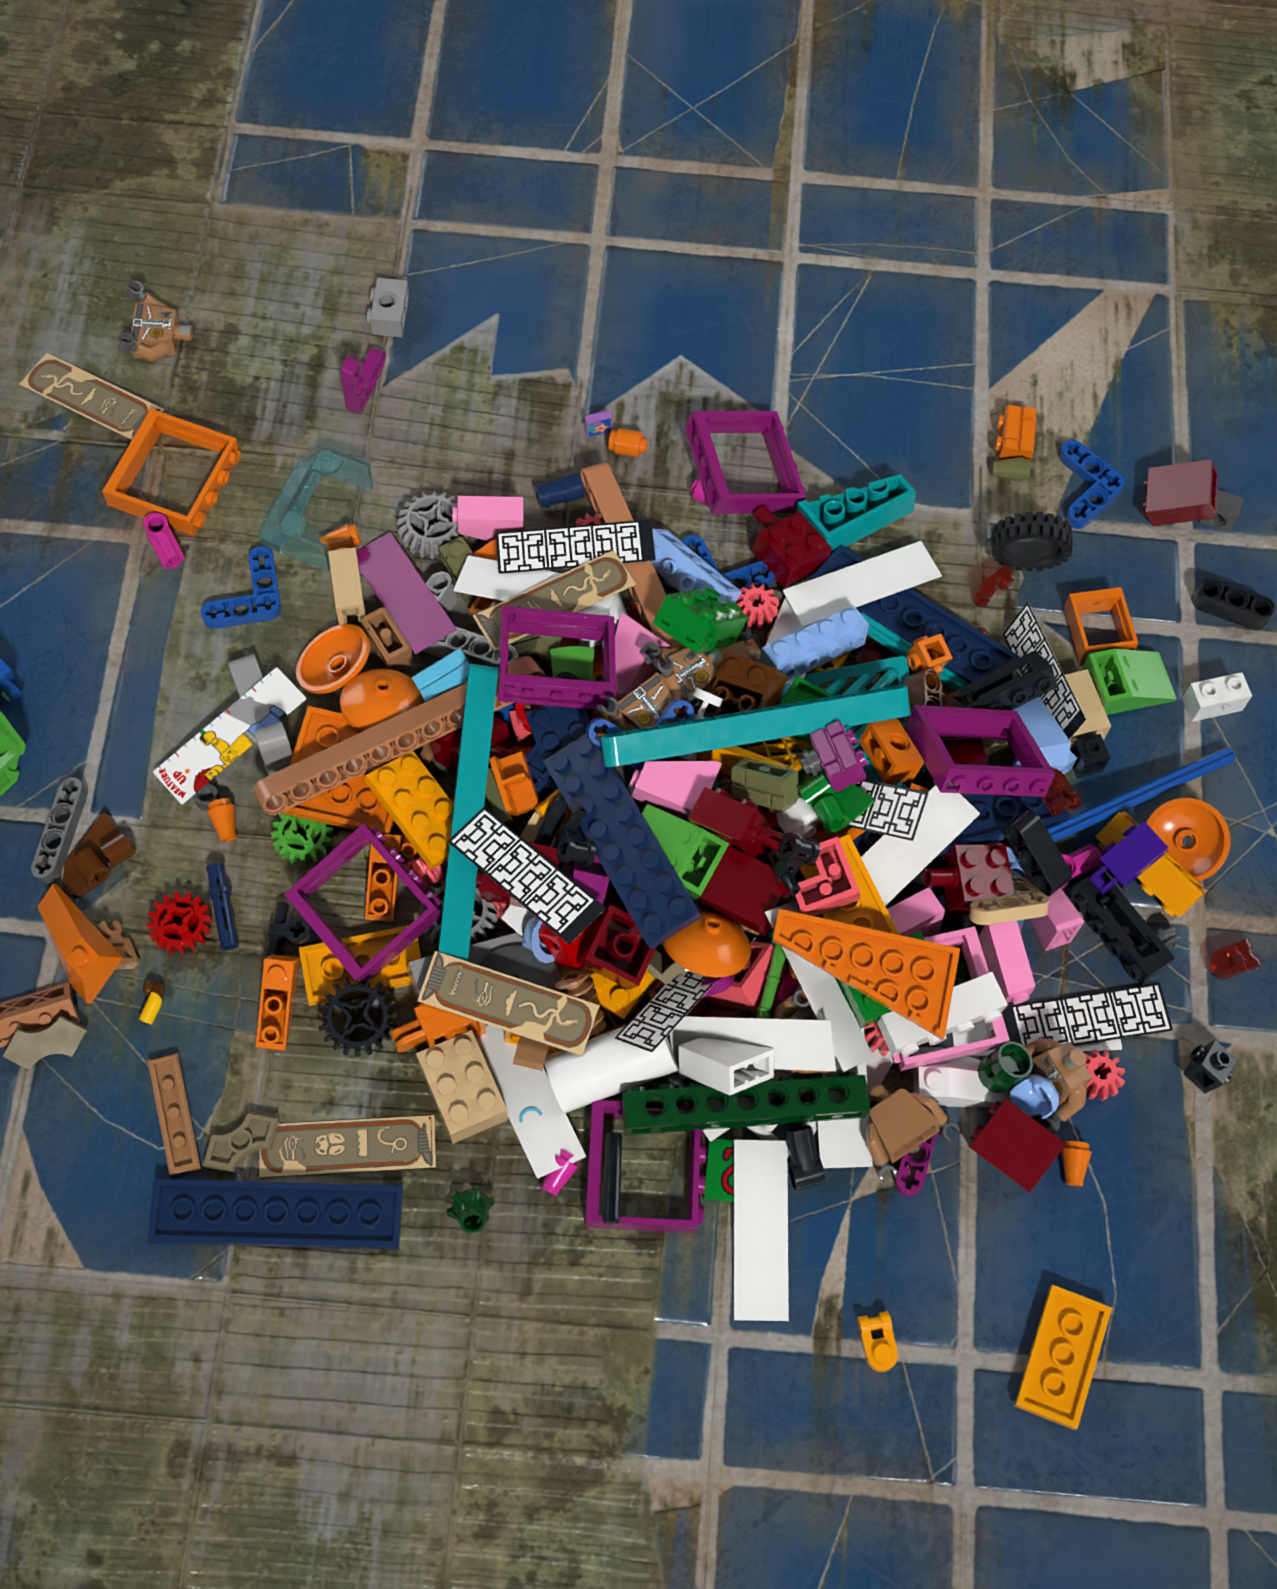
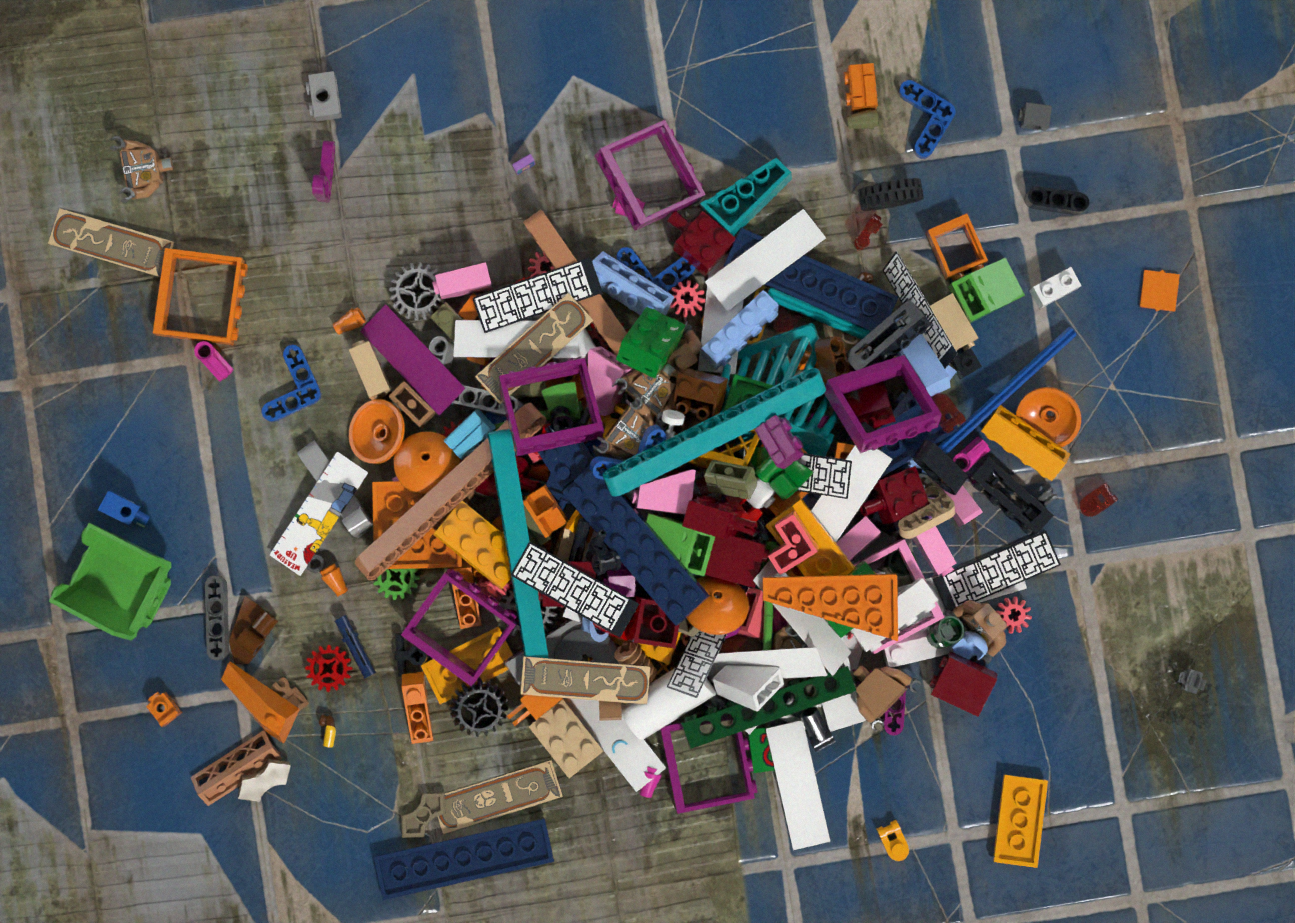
camera: 15 degrees left, 20 degrees up
(174, 1115) = (370, 806): medium nougat tile -> none
(285, 525) = (298, 325): clear light blue windscreen -> none
(470, 1209) = (596, 824): dark green rock -> none
(561, 490) = (509, 234): dark blue piece -> none
(612, 1178) = (688, 780): black axle -> none
(627, 442) = (551, 175): orange brick -> none
(791, 857) = (762, 538): black piece -> none
(811, 762) = (759, 450): dark grey plate -> none
(891, 751) = (817, 430): orange brick -> none
(928, 654) = (835, 319): orange brick -> none
(1075, 1162) = (1006, 683): orange cone -> none
(1129, 857) = (1008, 449): dark purple brick -> none
(1181, 492) = (1001, 113): brick -> none
(1210, 1066) = (1090, 590): black brick -> none

